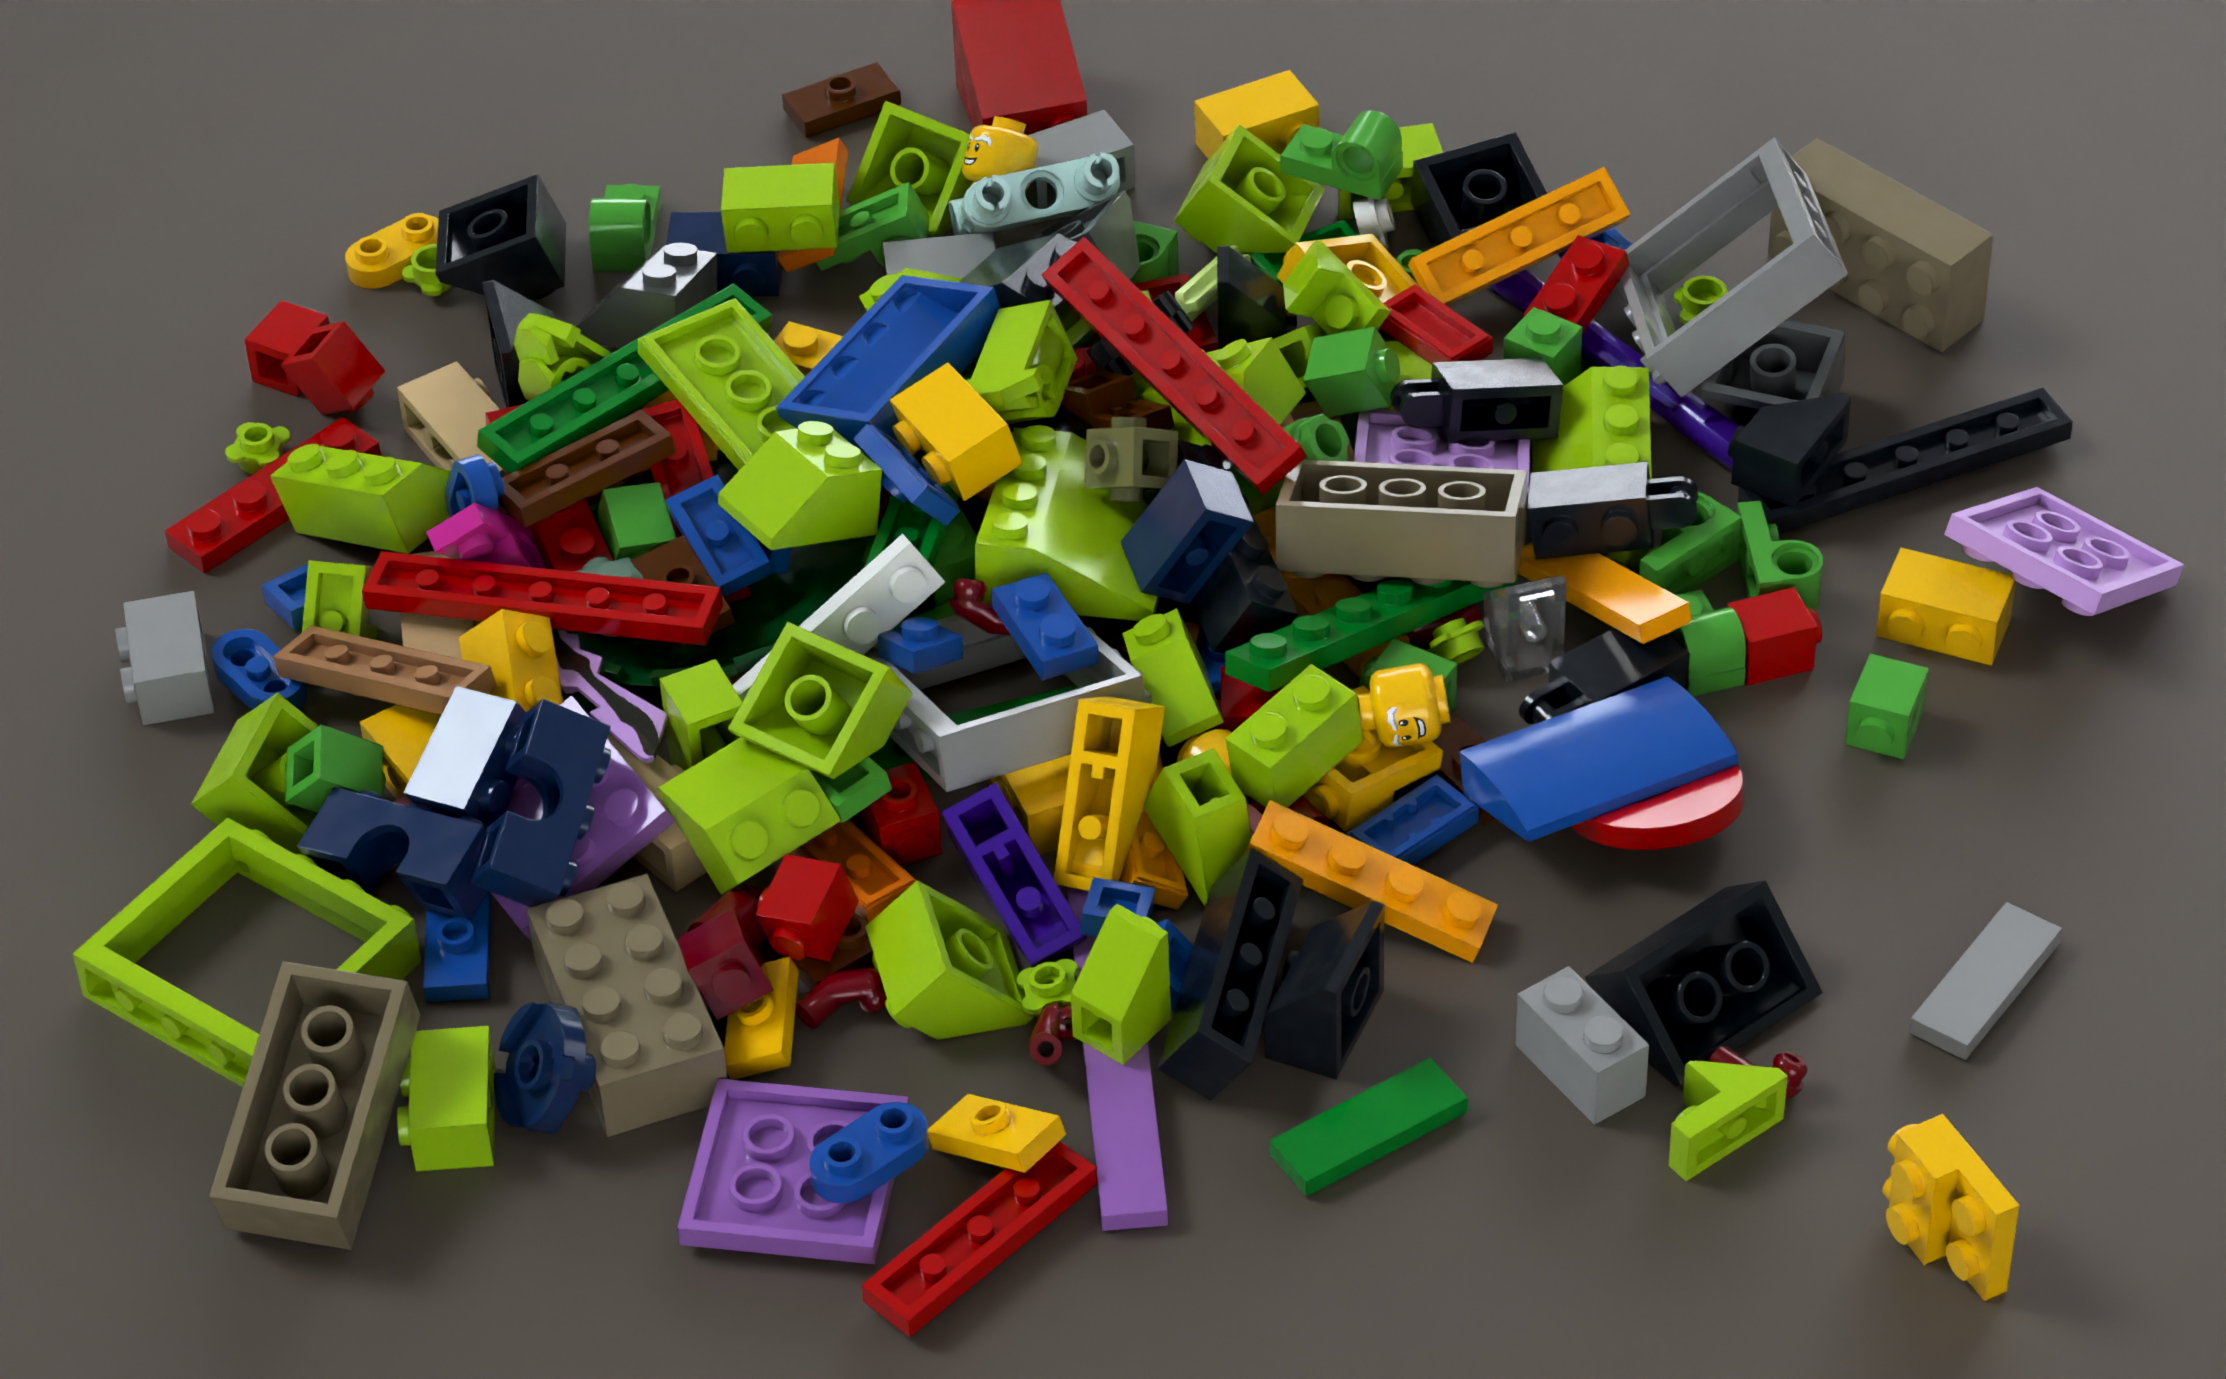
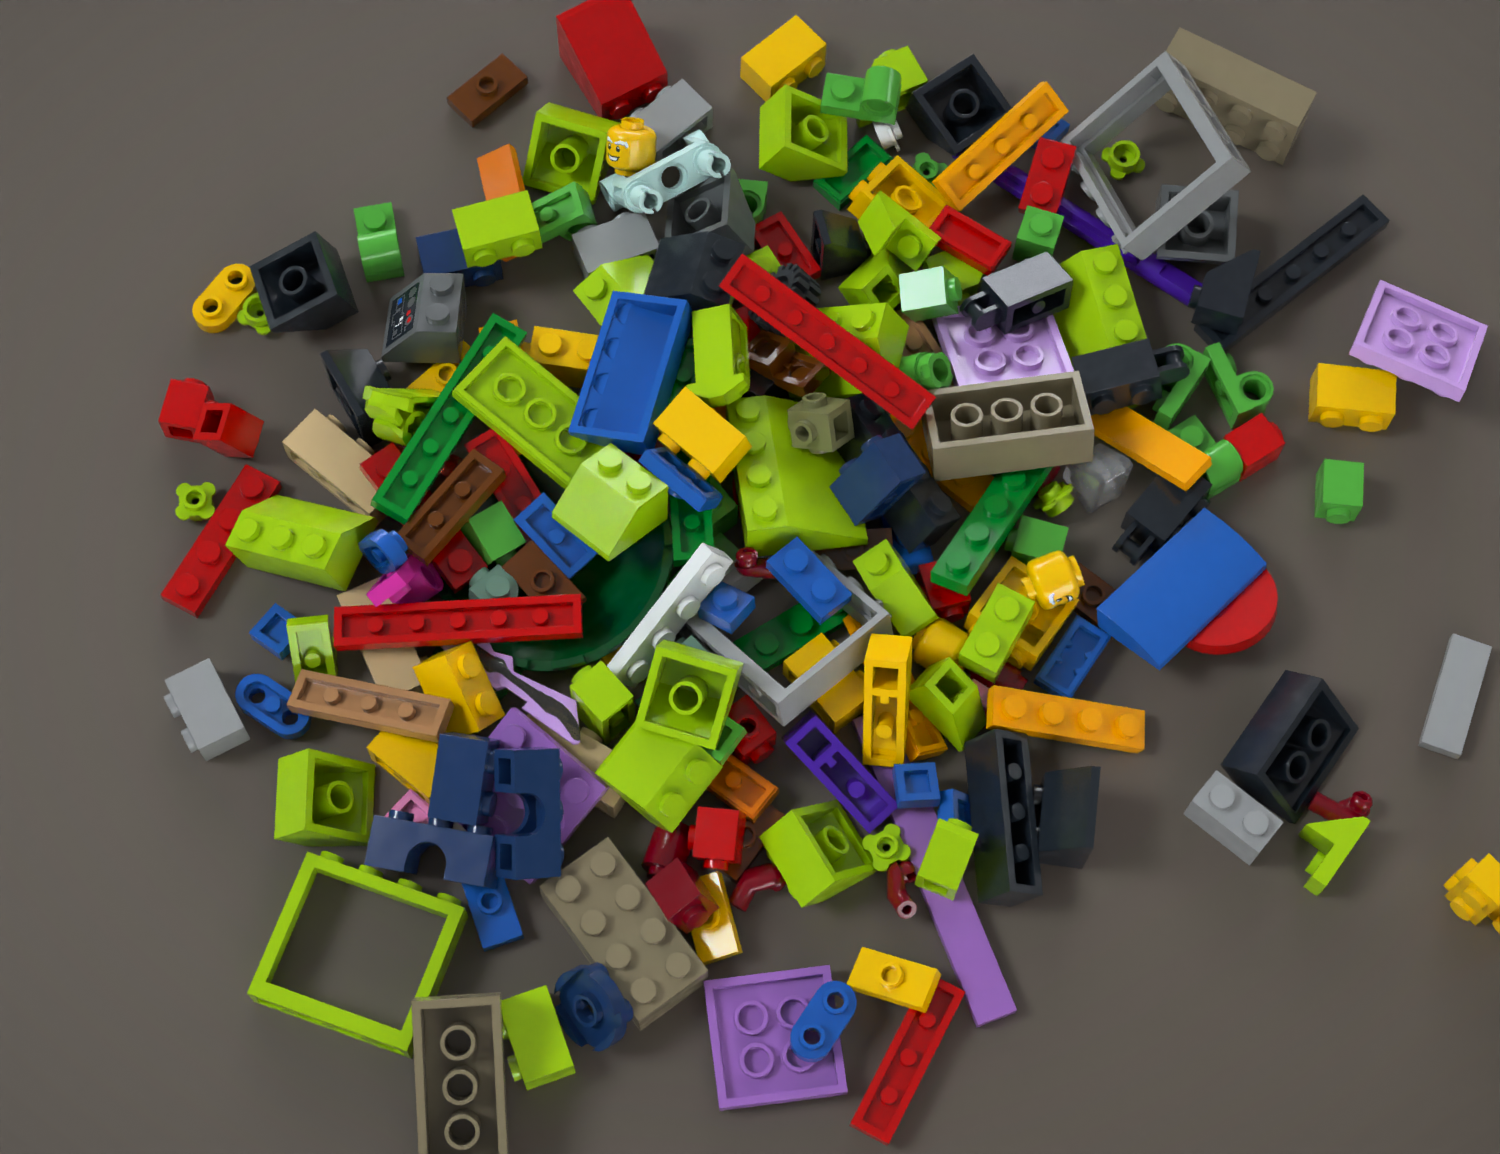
camera: 20 degrees left, 25 degrees up
(331, 760) = (365, 795): bright green brick -> none
(1201, 289) = (801, 221): yellowish green axle -> none
(1368, 1126) = (1116, 907): green tile -> none

